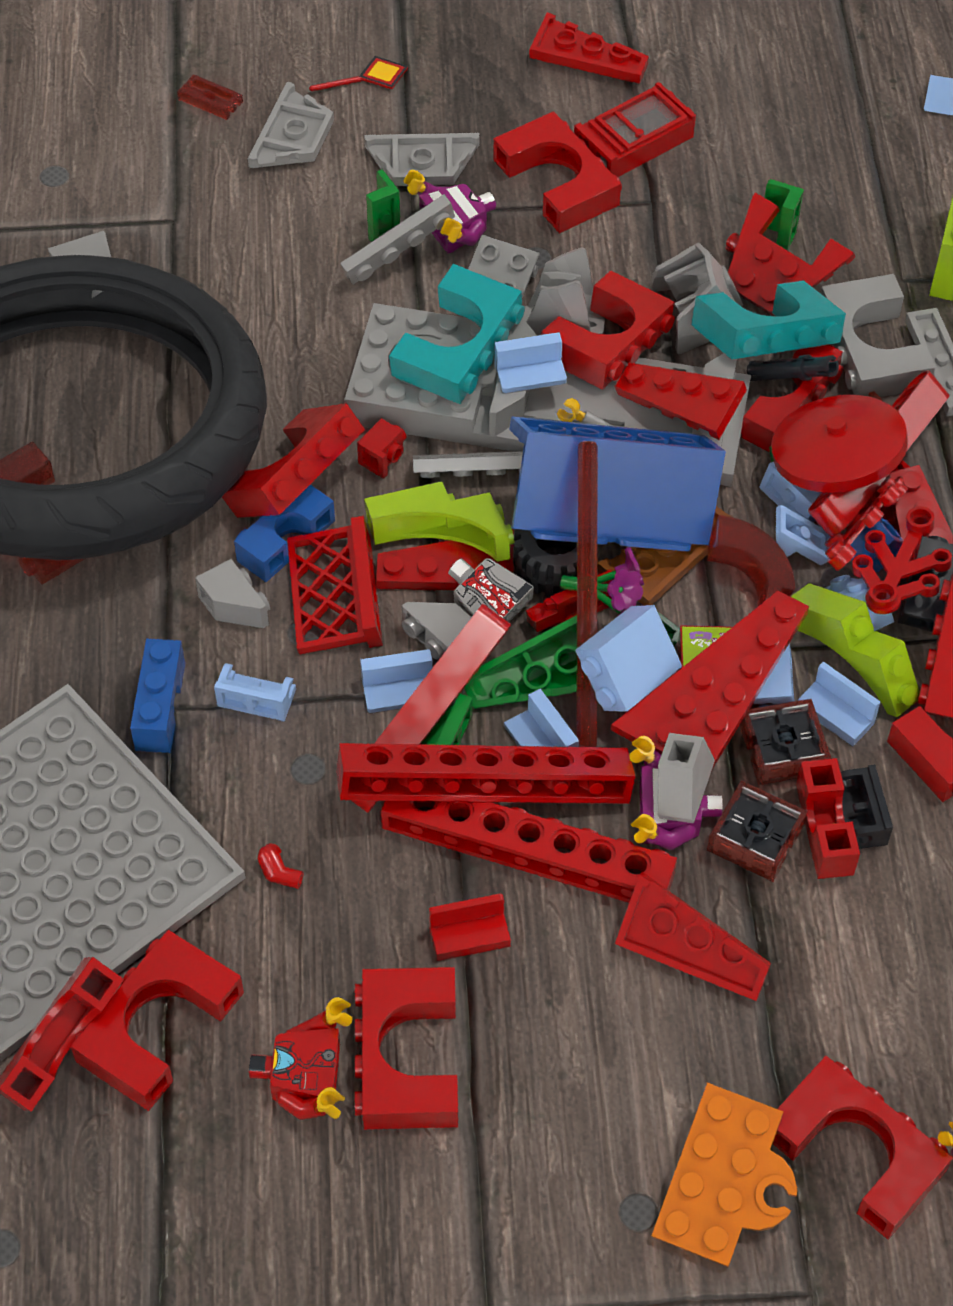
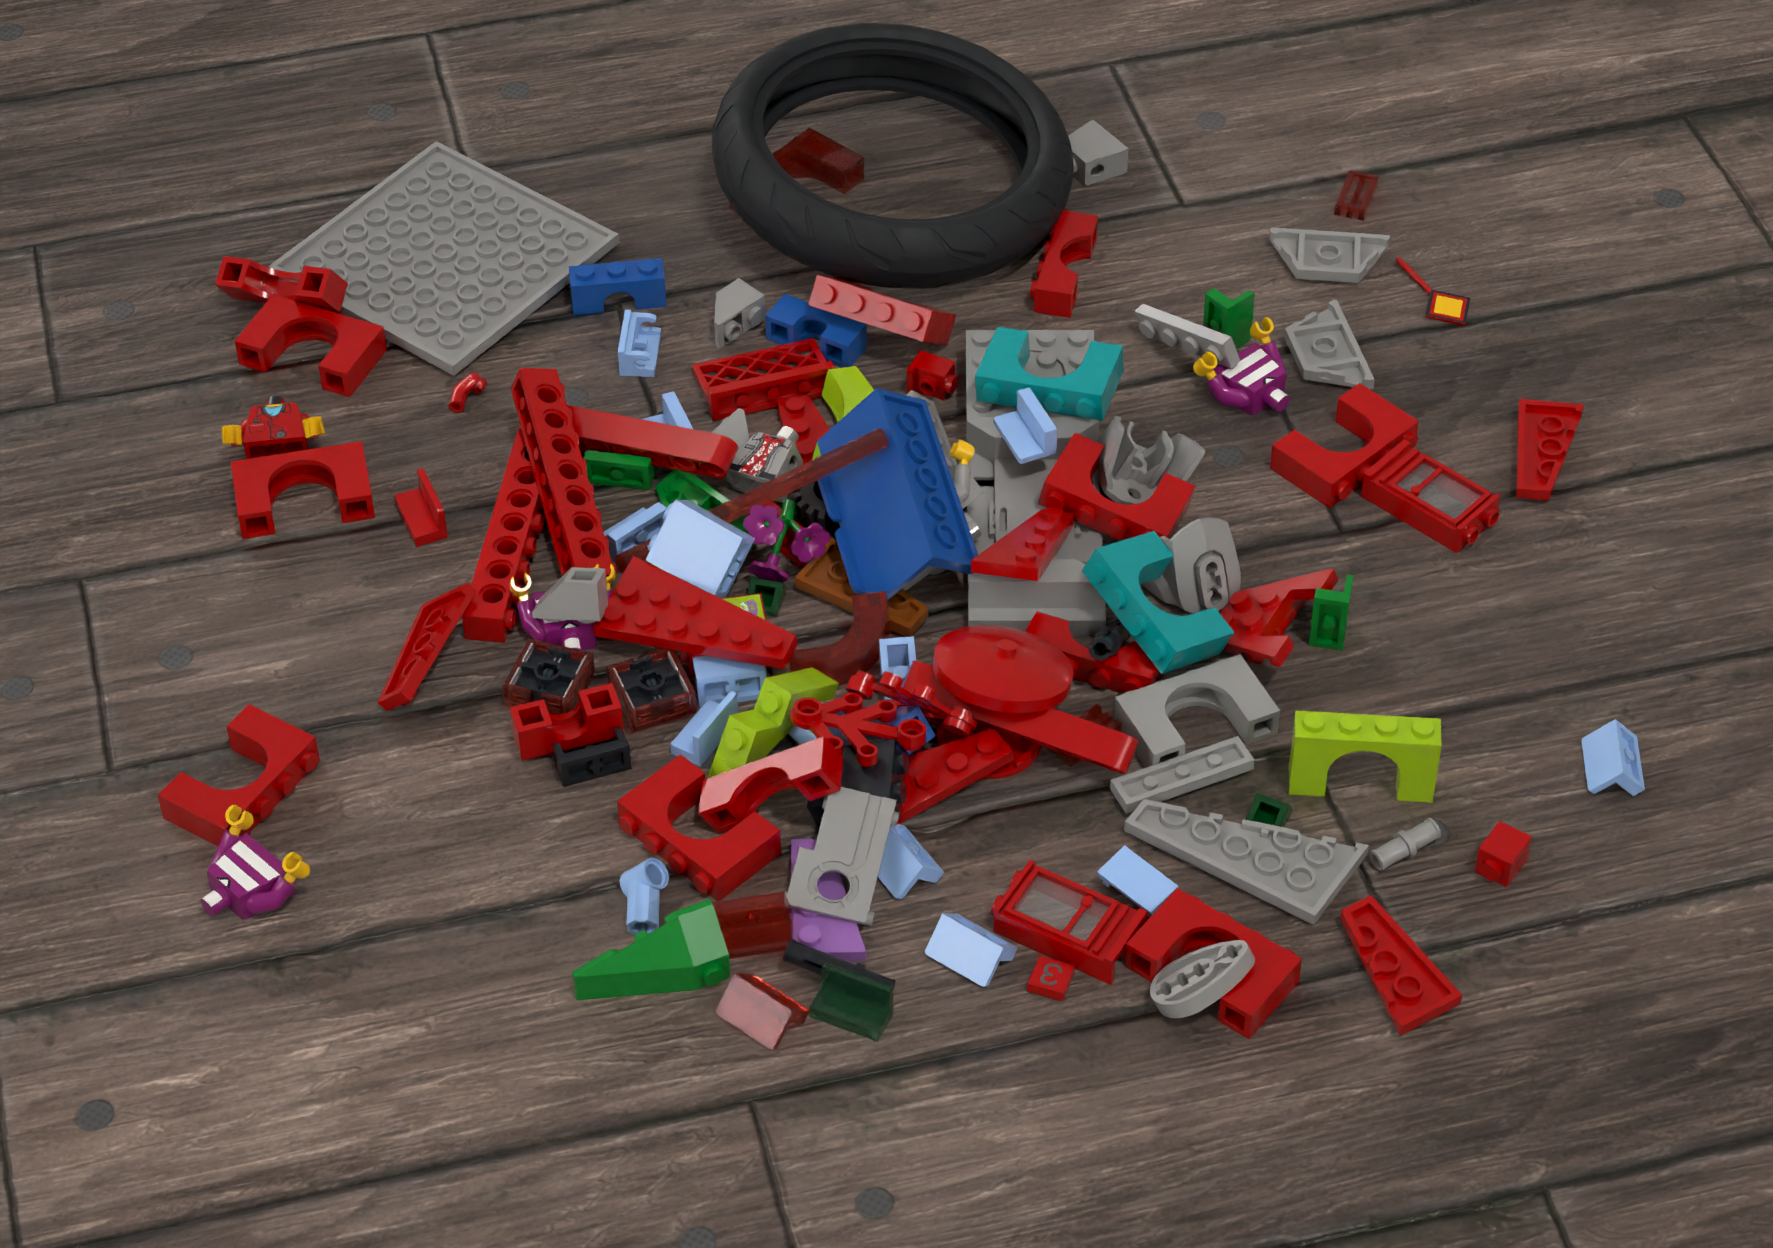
camera: 80 degrees right, 10 degrees down
(278, 329) = (1057, 286): none -> red arch
(504, 262) = (1191, 418): light grey hinge -> none
(724, 1177) = (199, 689): orange plate -> none

